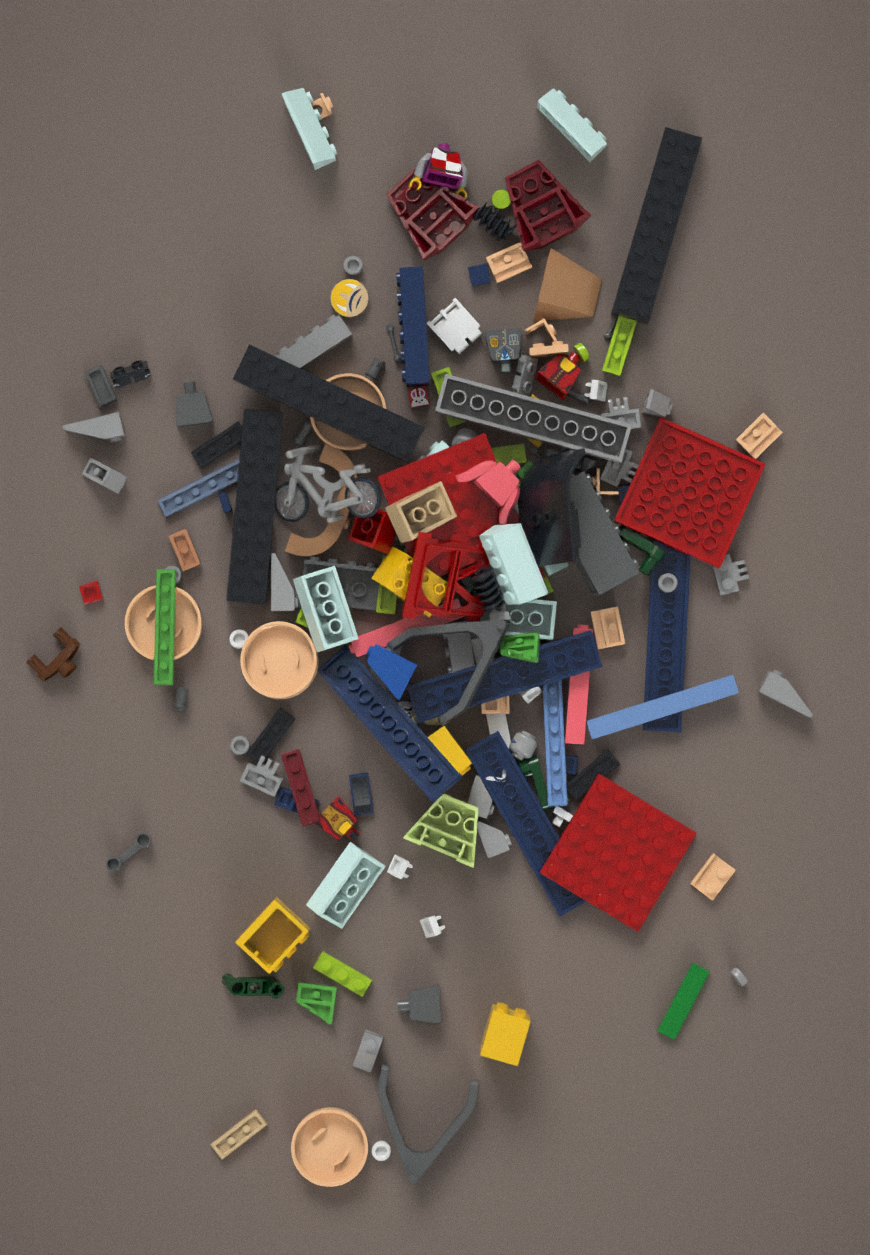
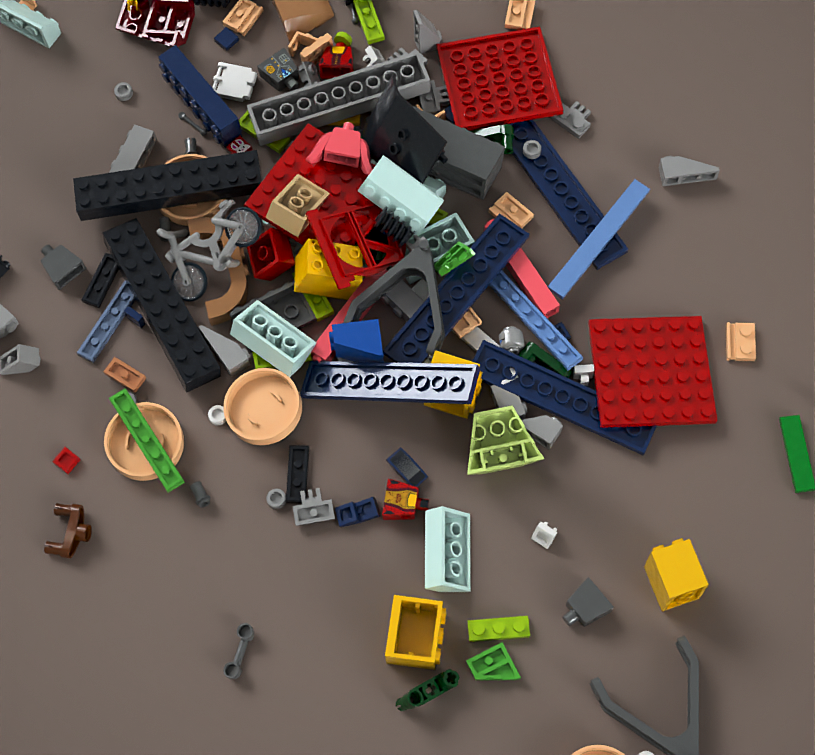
camera: 30 degrees left, 20 degrees down
(300, 787) = (352, 494): dark red tile -> none
(349, 298) = (137, 112): tile -> none
(368, 1050) = (569, 678): light grey slope -> none
(398, 867) = (481, 504): white tile -> none
(529, 695) = (486, 299): white tile -> none
(583, 780) = (580, 337): black tile -> none

